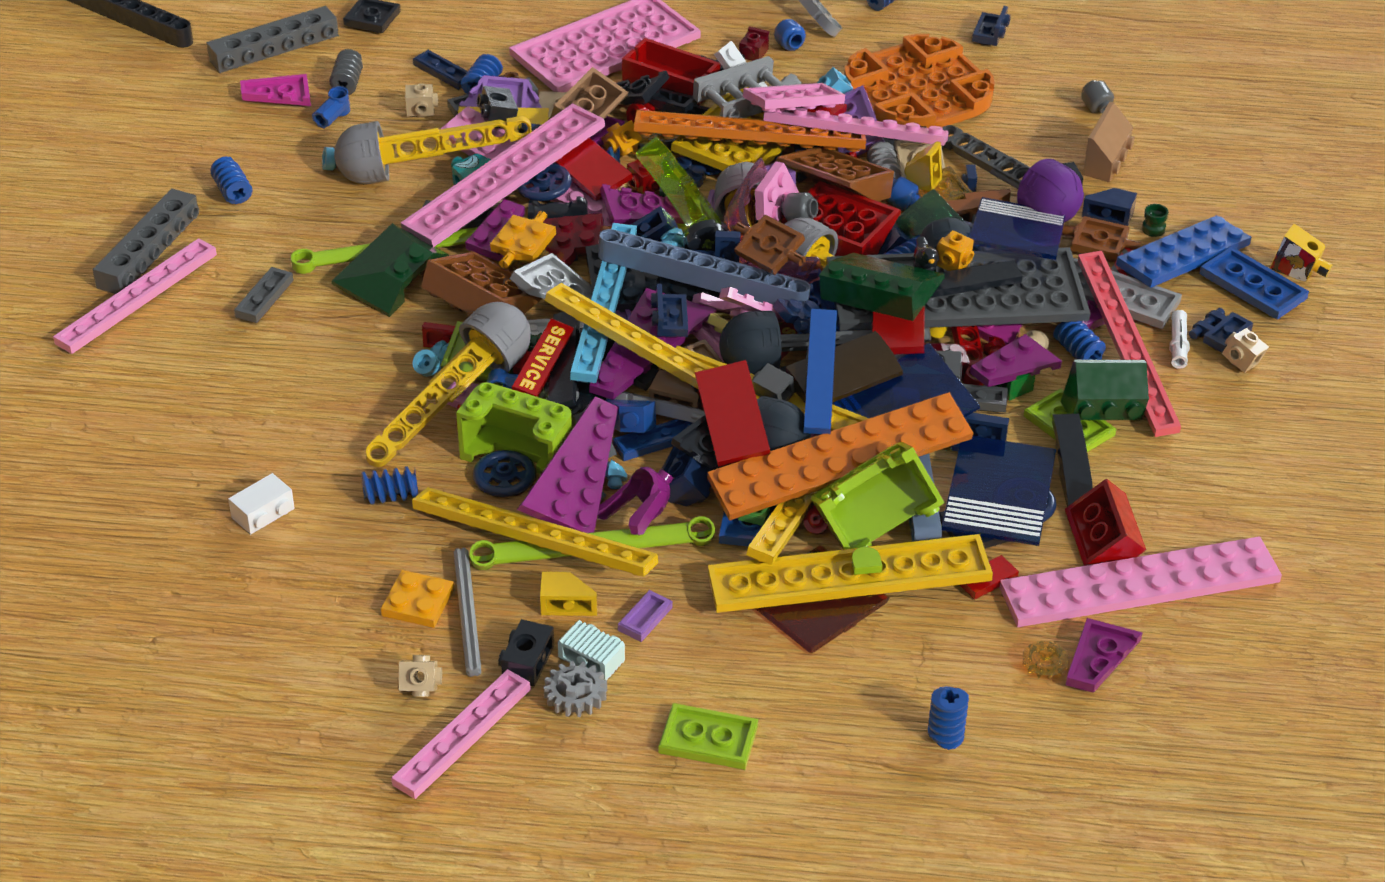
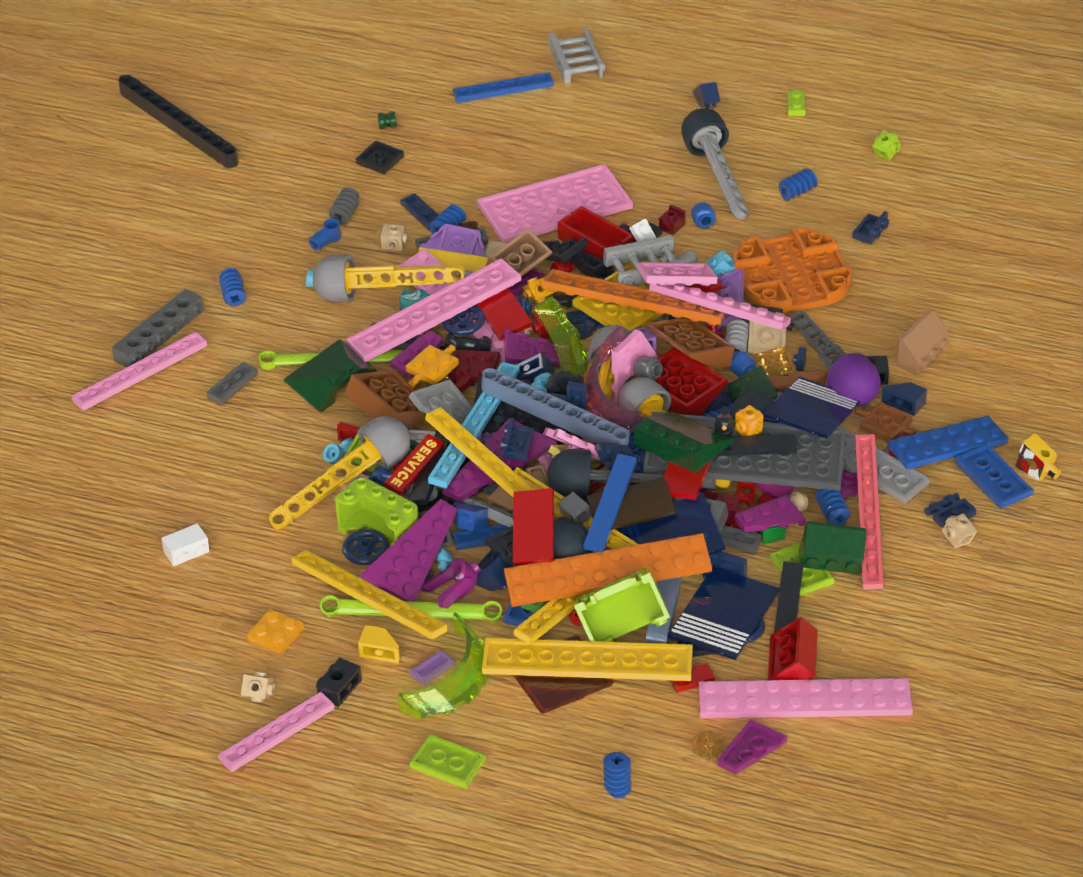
camera: 15 degrees right, 0 degrees up
(272, 39) = (297, 170): dark grey brick -> none
(281, 90) = (289, 214): dark pink wing -> none
(389, 485) = (279, 545): blue piece -> none
(467, 612) = (307, 646): light grey axle -> none
(496, 104) = (444, 251): black brick -> none
(575, 689) = (364, 713): light grey gear -> none
(592, 646) = (383, 686): light aqua brick -> none
(687, 640) = (456, 689): none -> clear neon green windscreen
(769, 244) = (606, 397): dark orange plate -> none
(866, 561) = (599, 652): lime tile -> none
(926, 167) = (763, 347): yellow slope -> none
(1096, 96) = (933, 299): dark grey head -> none
(1154, 221) = (935, 413): dark green wheel -> none
(1179, 344) = (911, 519): white pin -> none

